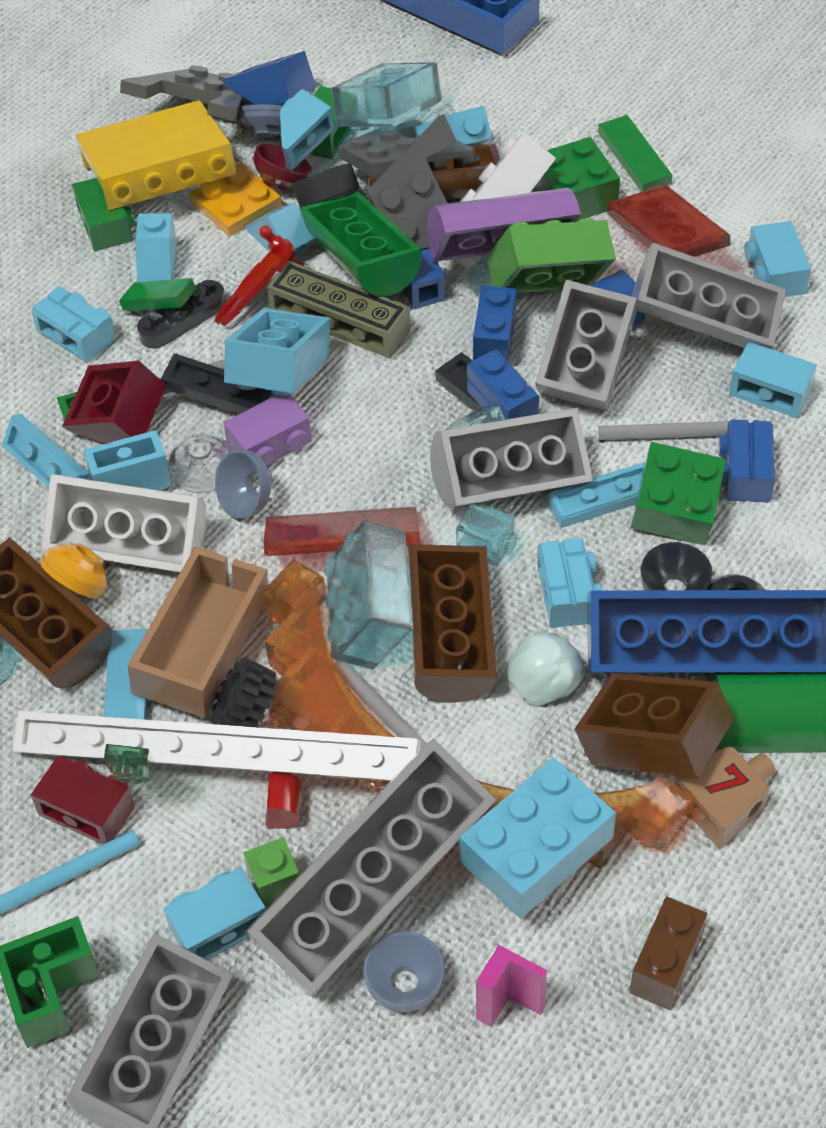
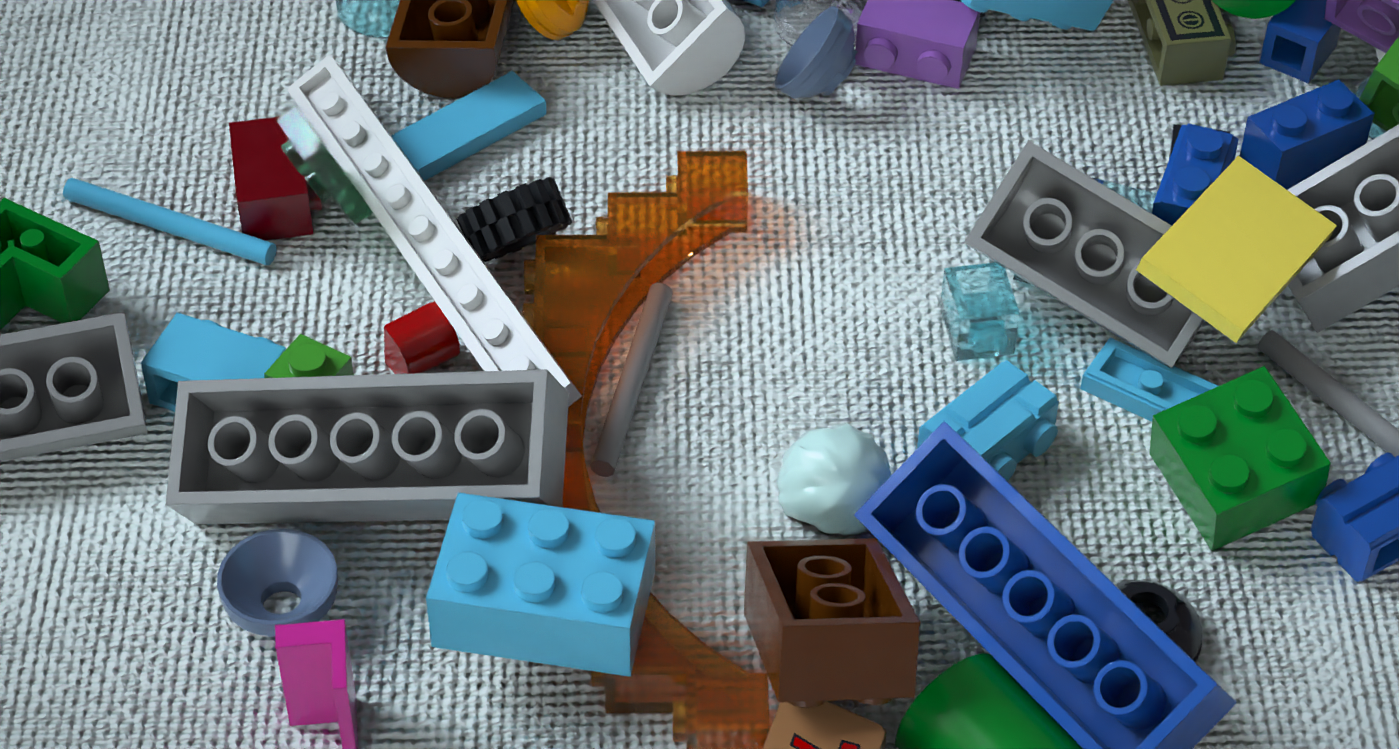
camera: 50 degrees right, 5 degrees down
(198, 632) = (581, 123): medium nougat piece -> none
(328, 530) = (839, 176): clear red tile -> none
(368, 595) = (756, 236): clear light blue brick -> none
(451, 622) = (804, 341): reddish brown brick -> none
(573, 400) = (1236, 248): none -> light yellow tile
(676, 562) = (1121, 515): black piece -> none

